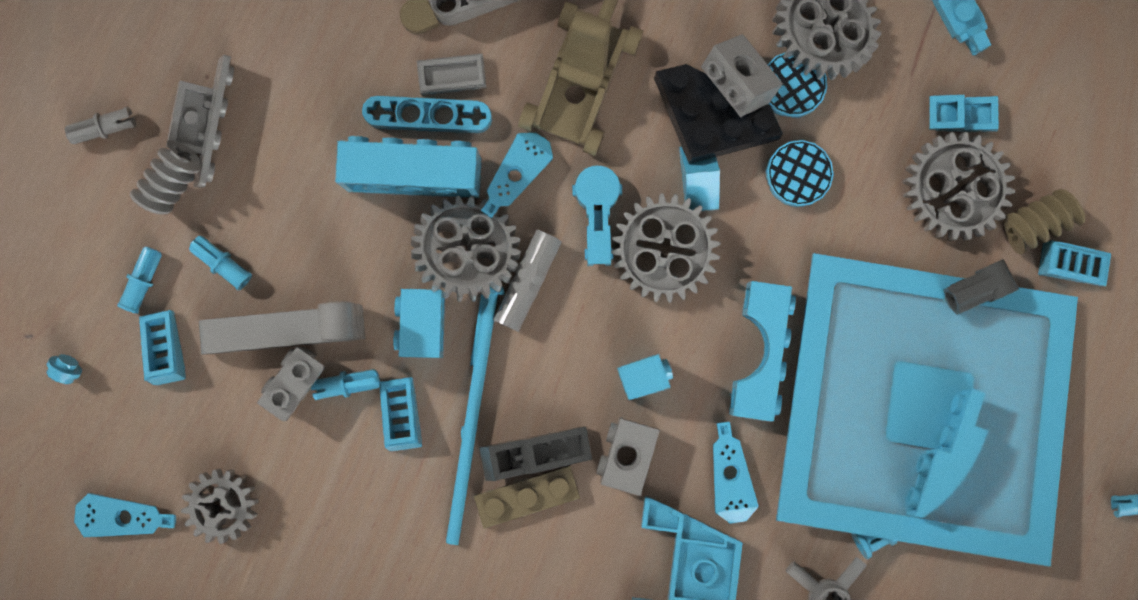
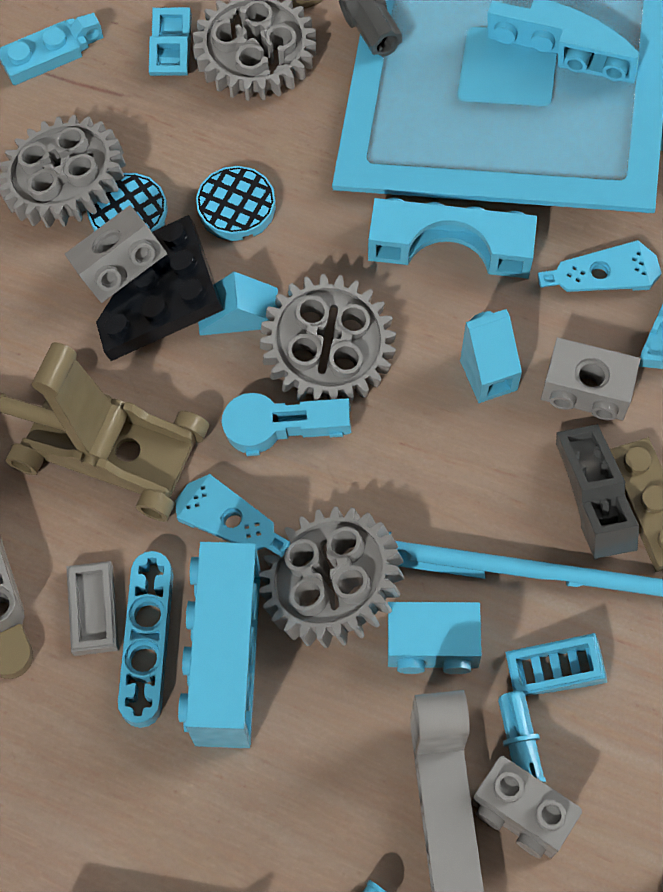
camera: 90 degrees left, 20 degrees down
(527, 280) = (385, 506): light grey axle -> none

